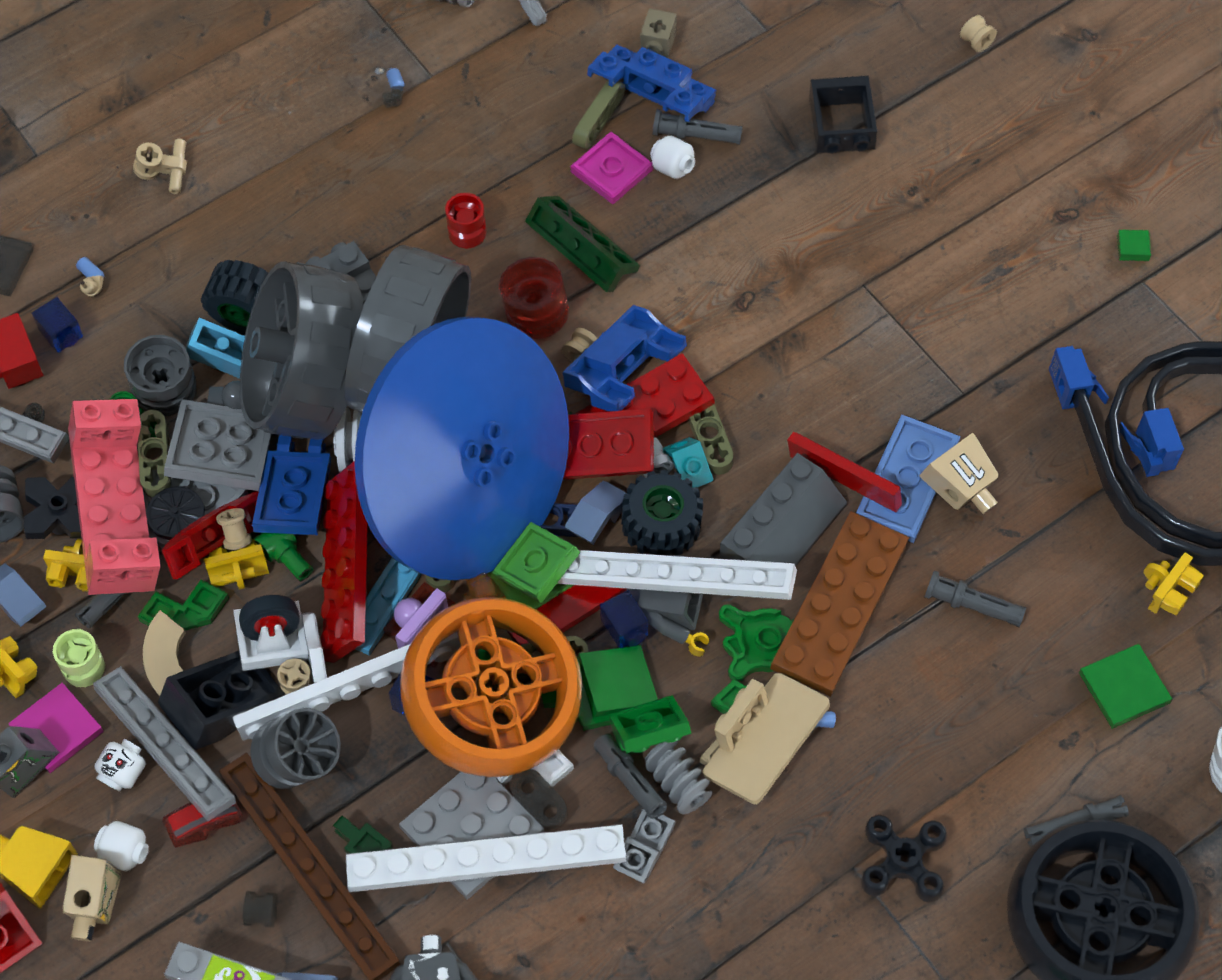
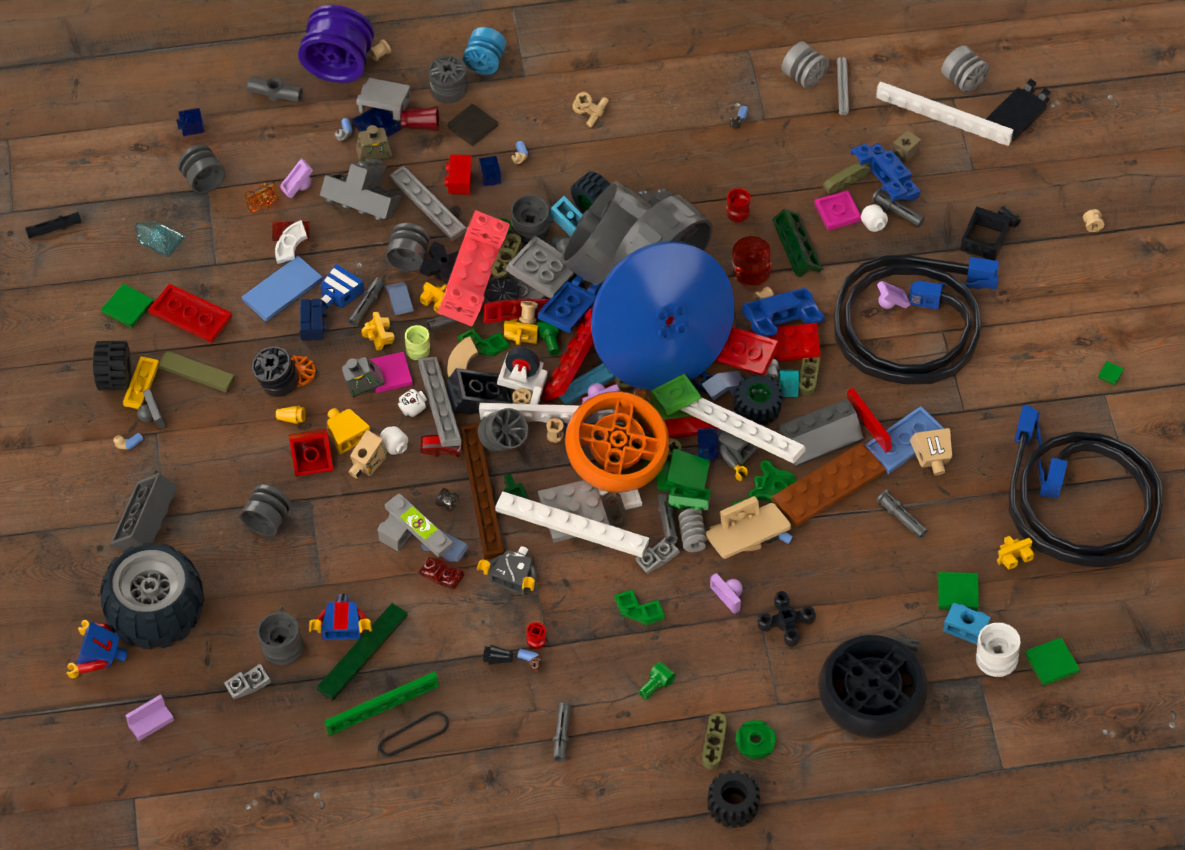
camera: 25 degrees right, 5 degrees down
(374, 697) = (557, 428): none -> tan bush
(677, 956) = (644, 613): none -> green tile
(765, 264) = (892, 295): none -> lavender tile
(789, 855) = (727, 592): none -> lavender tile
(807, 242) = (980, 274): none -> black piece
(859, 71) = (1015, 218): none -> black pin
(1157, 744) = (956, 624): none -> dark azure brick

